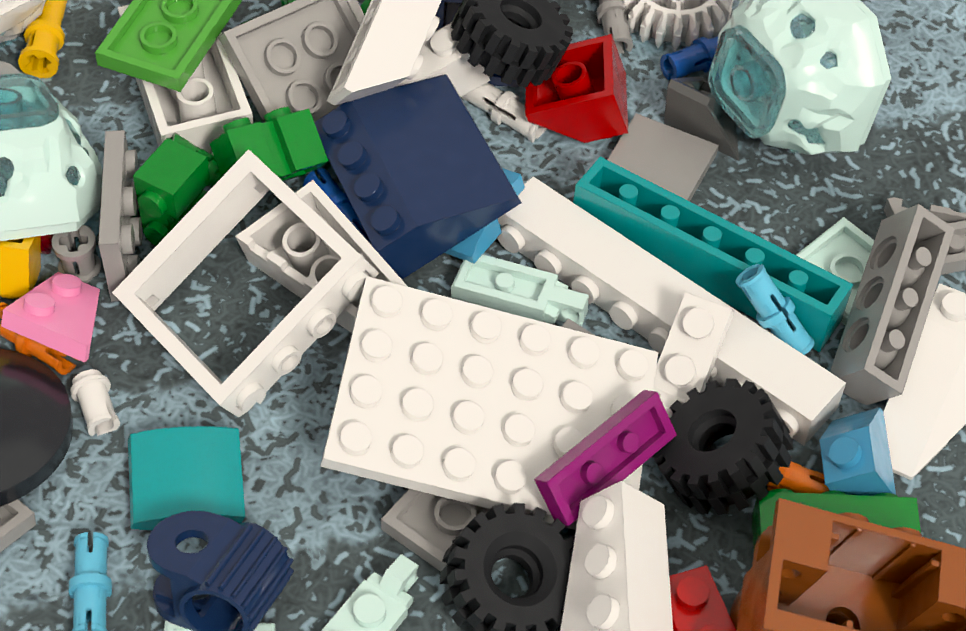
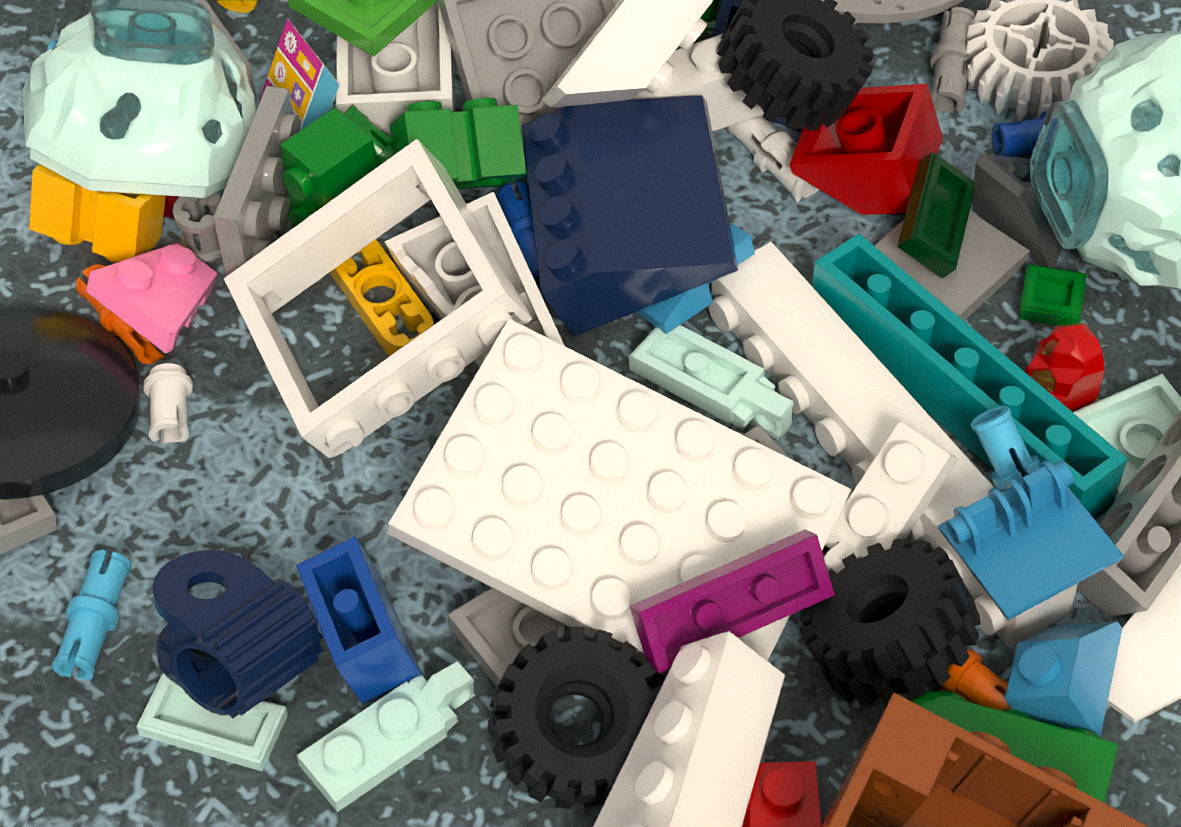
camera: 20 degrees right, 0 degrees up
(119, 111) = (304, 74): none -> sticker
(184, 472) = (243, 507): teal slope -> none
(243, 297) = (379, 317): none -> yellow beam
(315, 539) = (358, 620): none -> blue brick
(646, 131) = (937, 215): none -> dark green tile
(745, 176) = (1052, 295): none -> green tile
(782, 221) = (1069, 365): none -> red rock
(807, 361) = (1030, 539): none -> dark azure hinge

